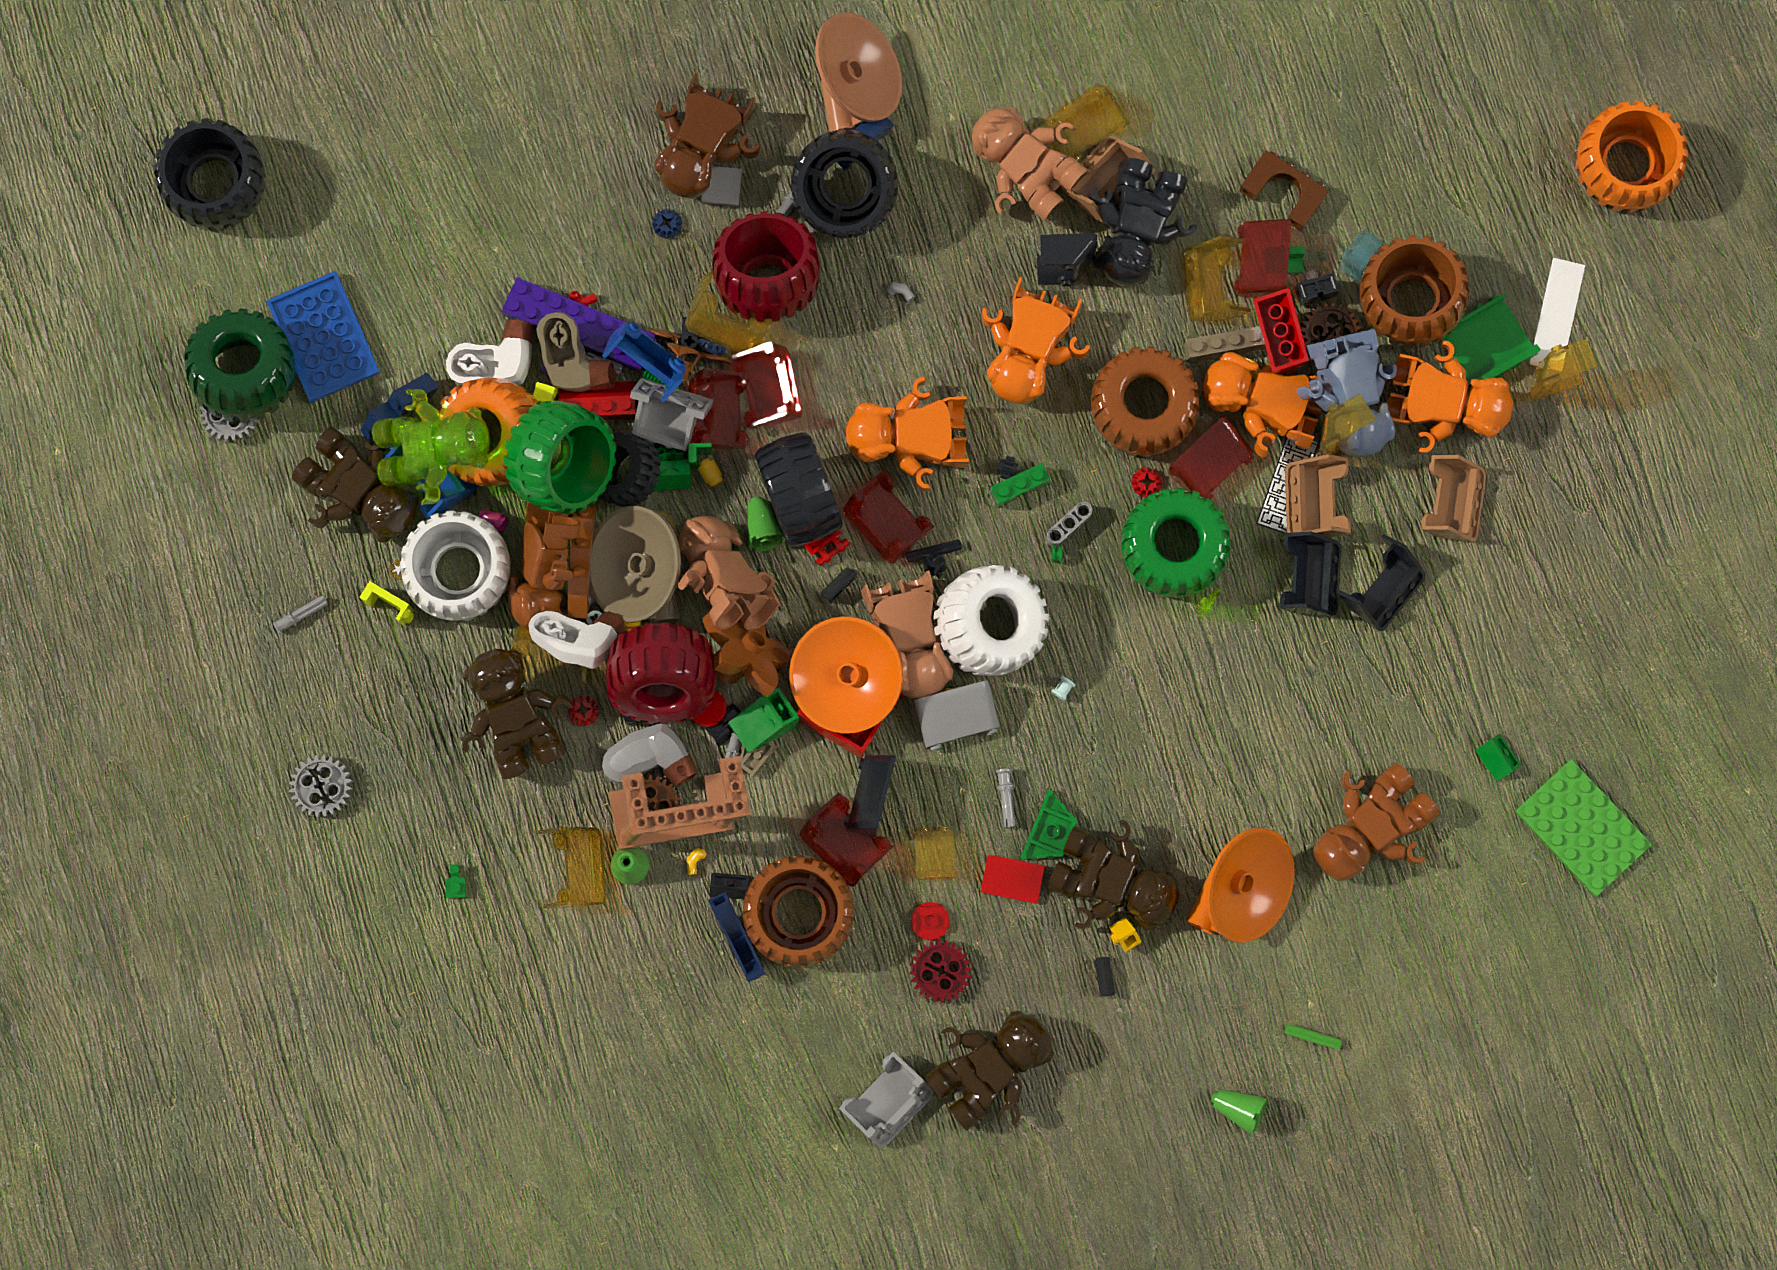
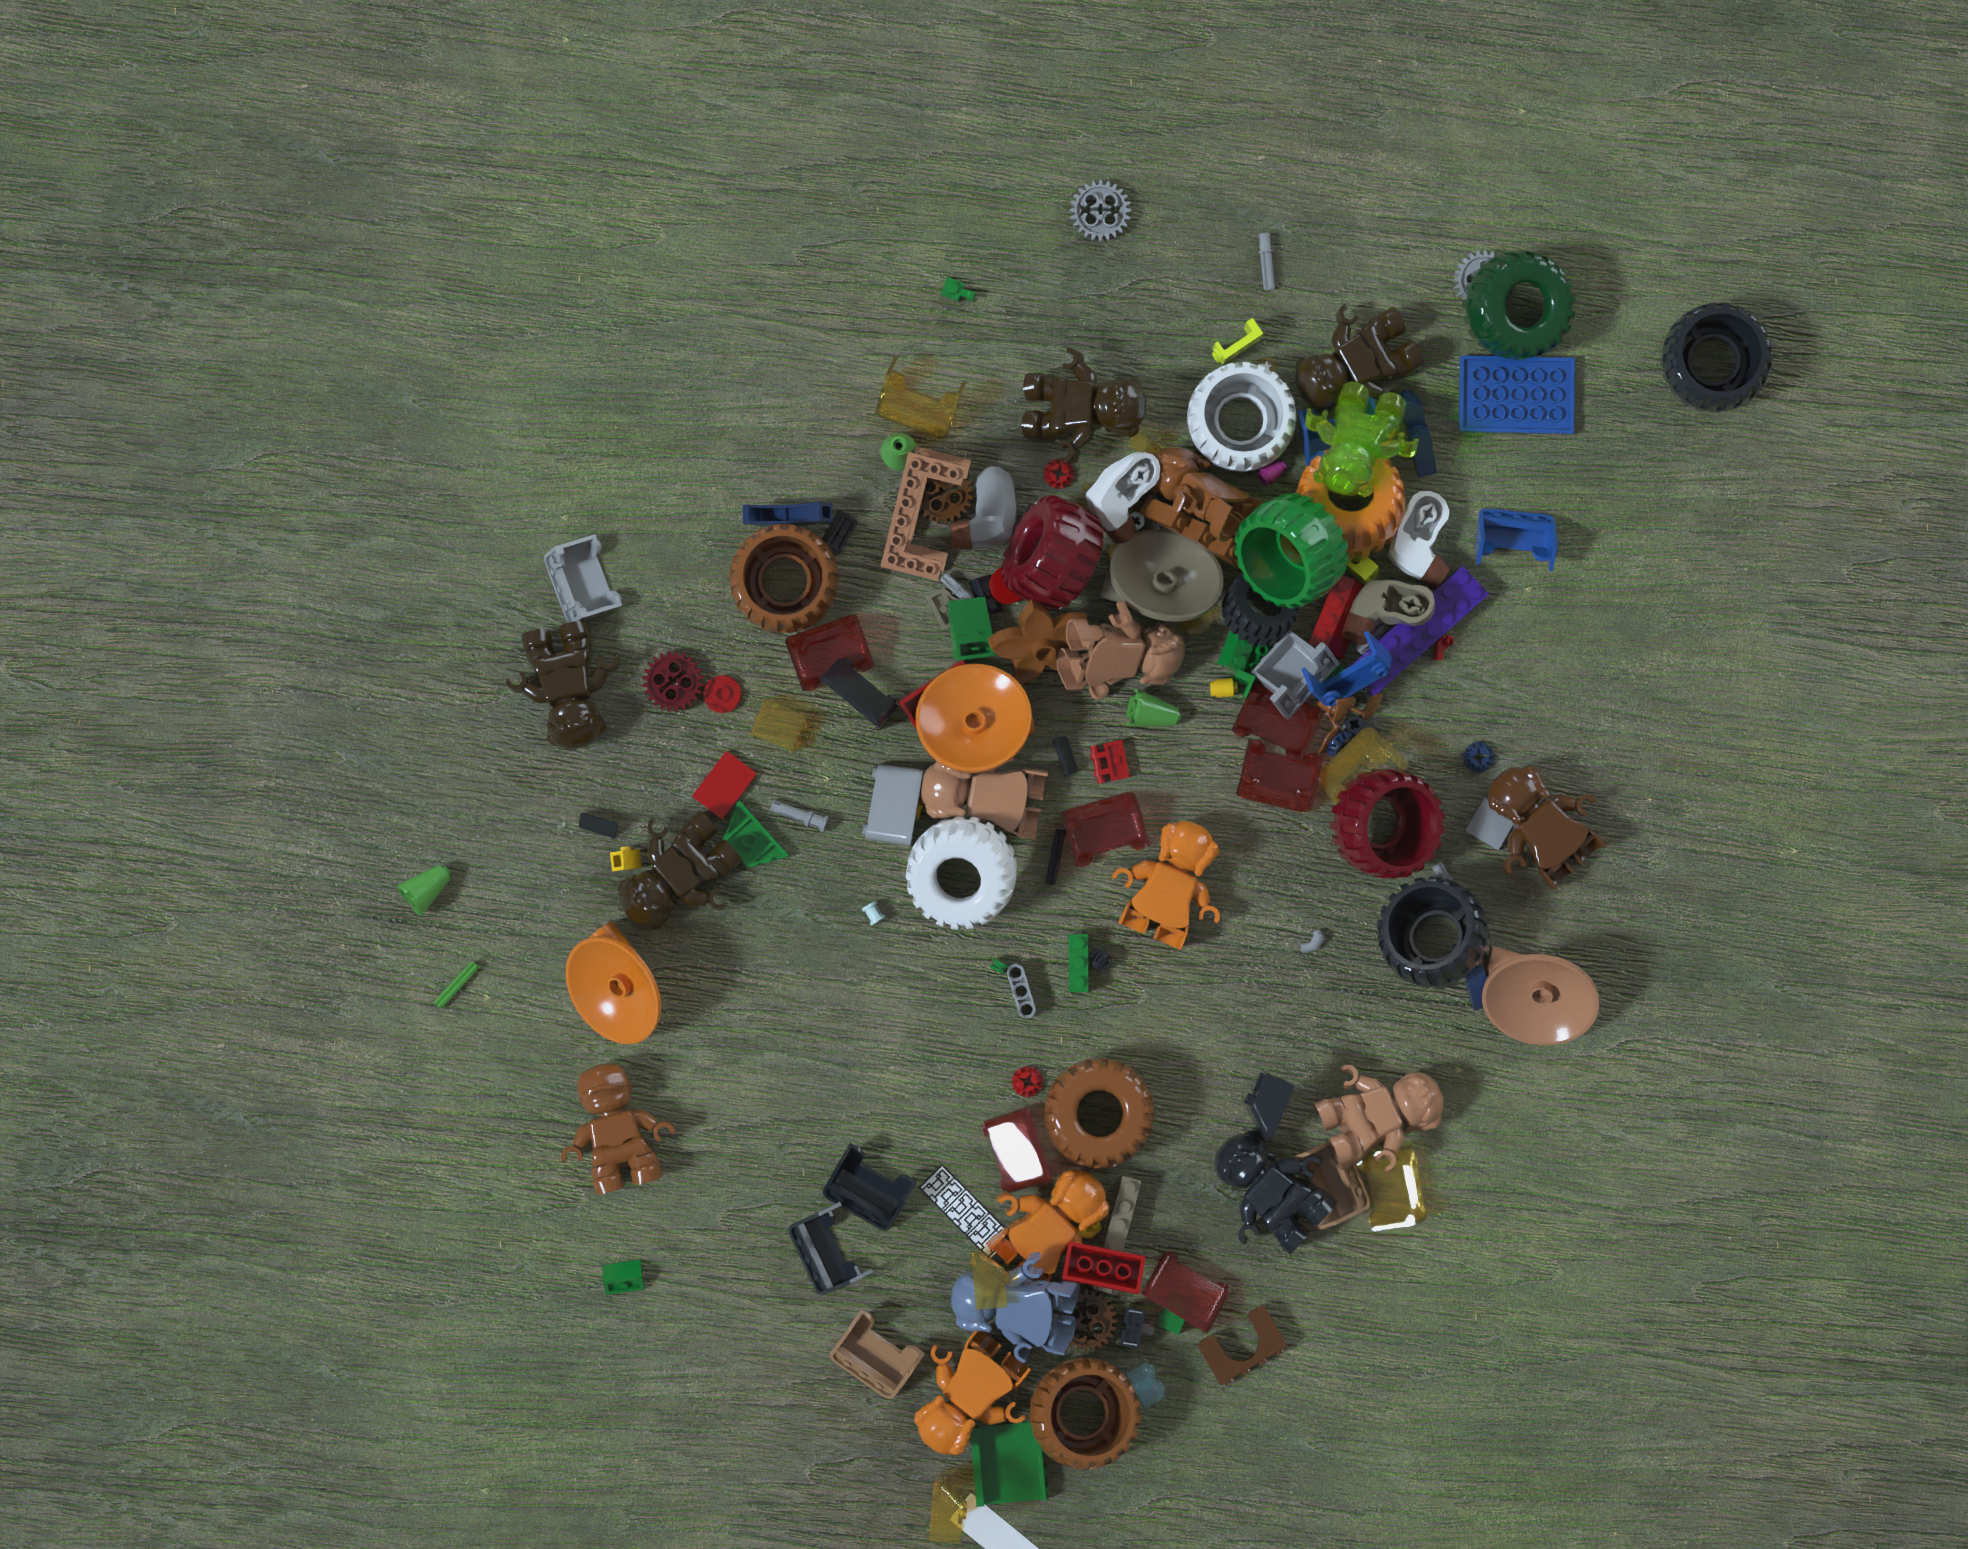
camera: 110 degrees right, 5 degrees up
(446, 278) = (1516, 531): none -> blue windscreen
(693, 858) = (878, 510): yellow arm -> none
(799, 489) = (1163, 754): black tyre -> none
(935, 565) = (1040, 850): black gear -> none
(1030, 344) = (1205, 1036): orange piece -> none
(1166, 576) = (946, 1040): green tyre -> none
(1204, 280) = (1187, 1227): clear yellow windscreen -> none
(1206, 603) = (887, 1077): clear neon green plate -> none
(1312, 495) = (938, 1225): medium nougat windscreen -> none
(1583, 828) = (523, 1322): bright green plate -> none

